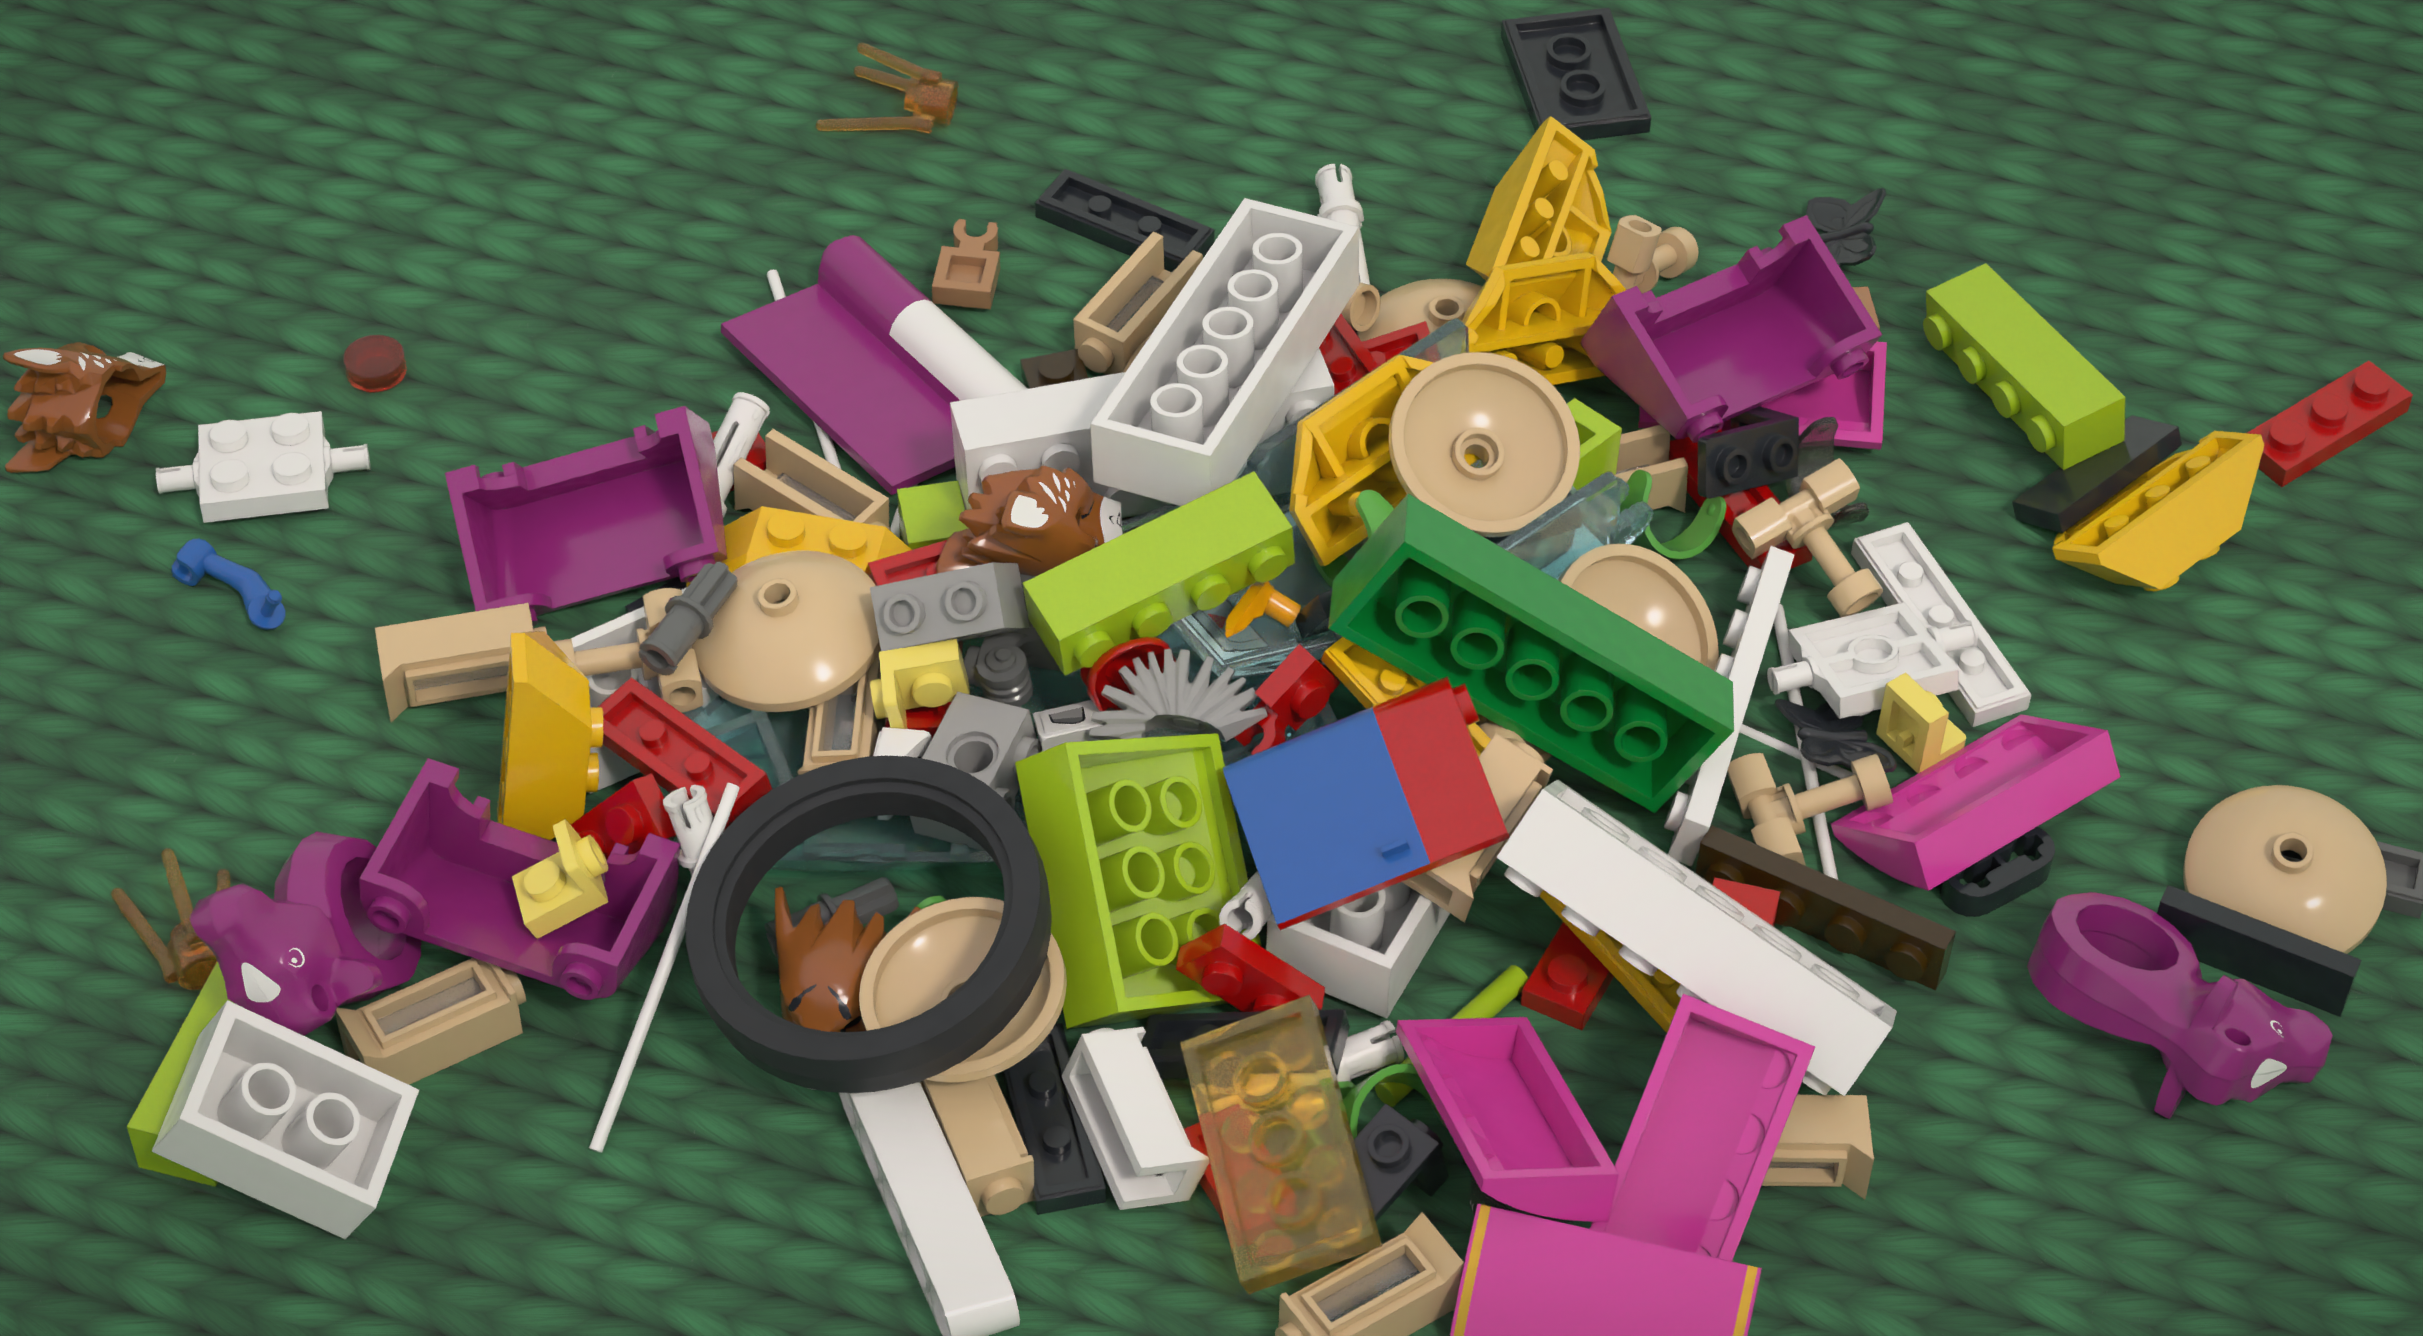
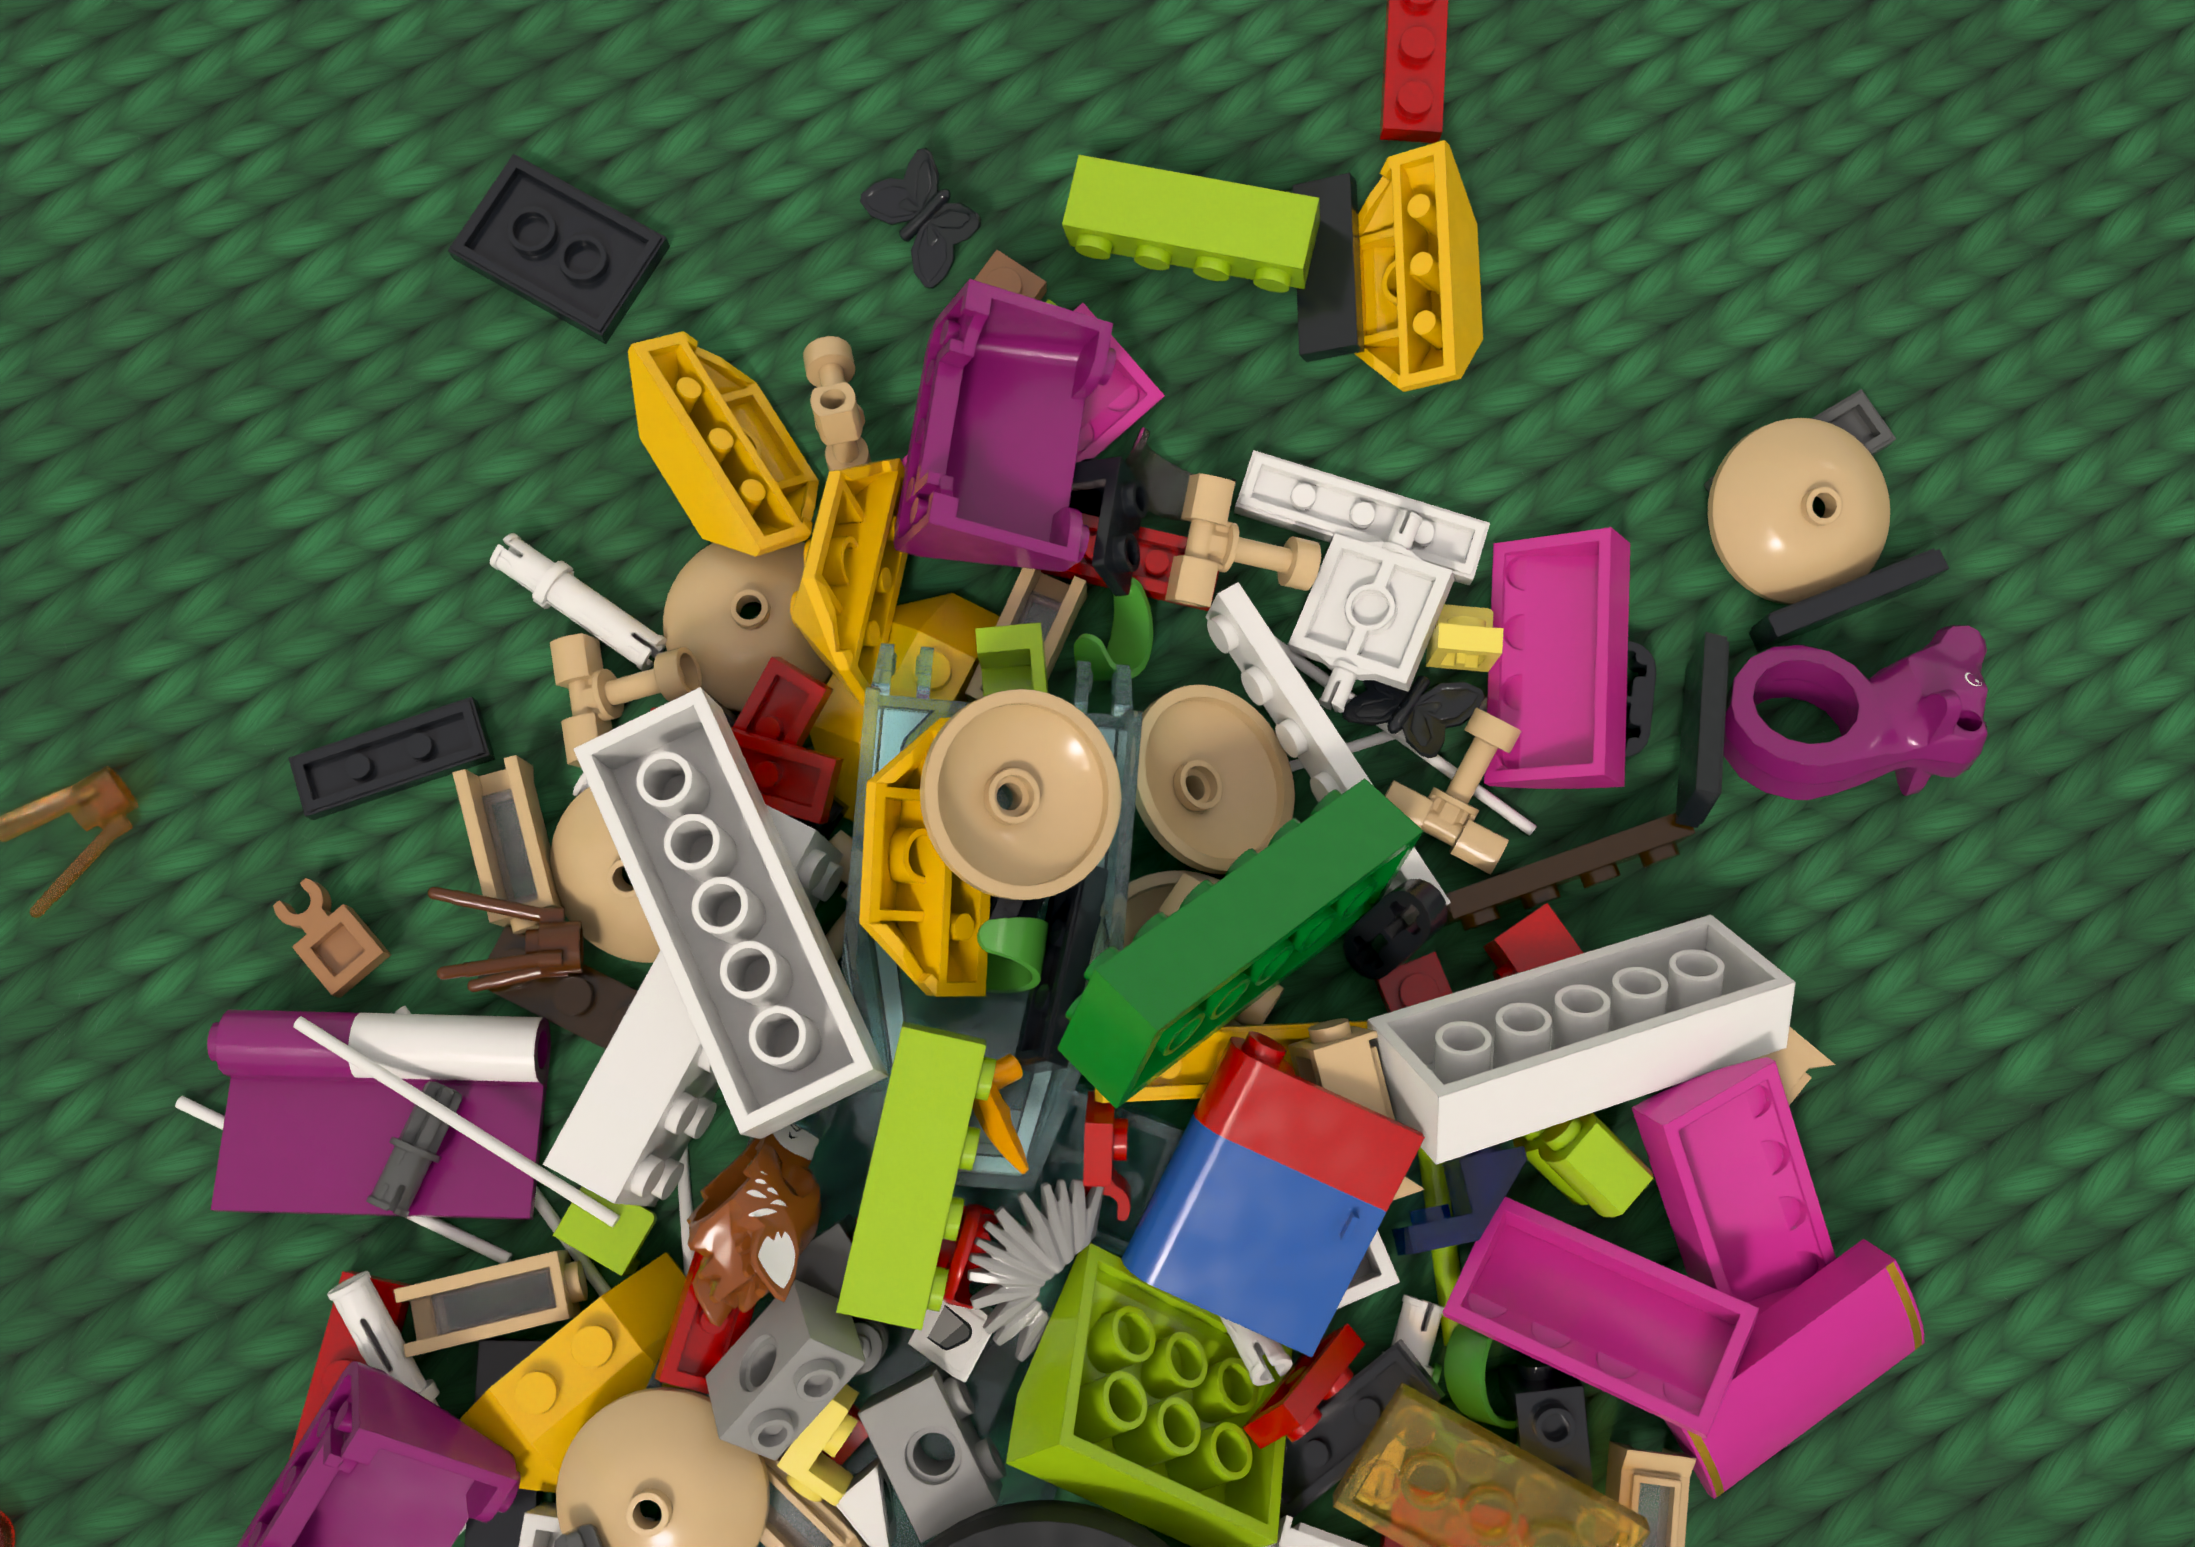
camera: 50 degrees left, 30 degrees up
(876, 388) = (413, 1153): none -> dark grey axle
(921, 389) = (456, 1121): none -> white axle
(1087, 353) = (549, 951): none -> reddish brown plant
(1524, 988) = (1476, 1191): none -> clear blue slope
(1611, 1032) = (1588, 1164): none -> lime brick
(1660, 803) = (1387, 920): none -> black beam
(2020, 898) = (1702, 731): none -> black tile

